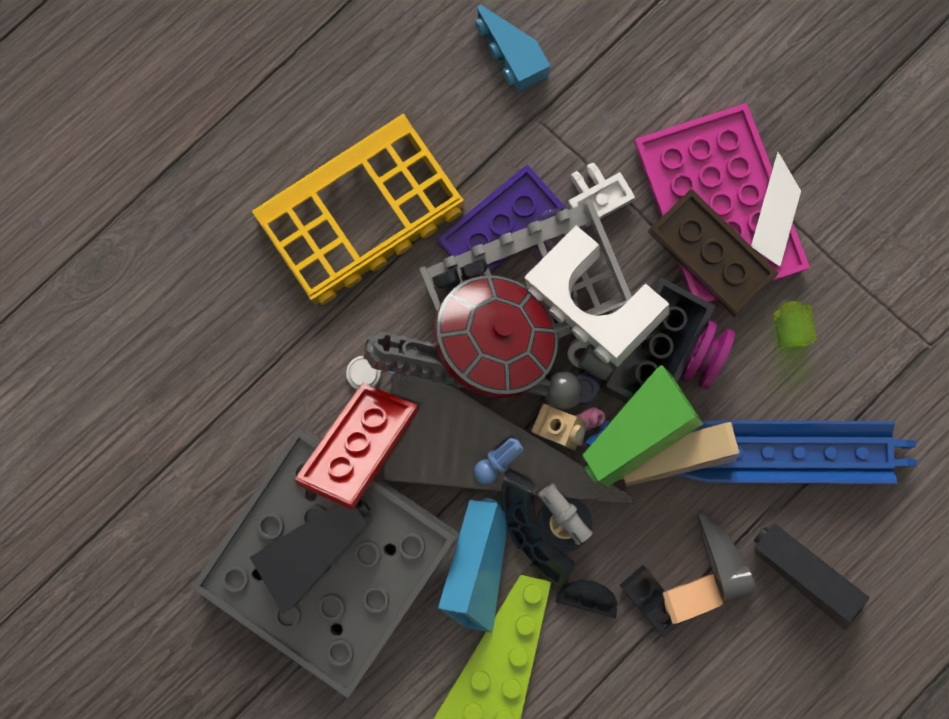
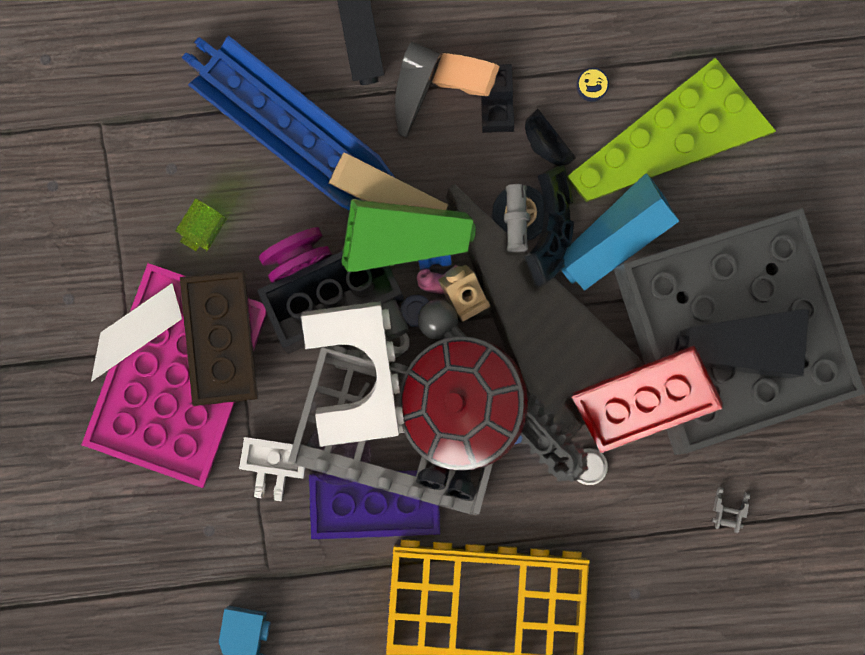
camera: 140 degrees left, 5 degrees up
(222, 426) = (720, 508): none -> light grey piece
(487, 470) = (552, 301): medium blue axle -> none
(588, 672) = (592, 84): none -> tile

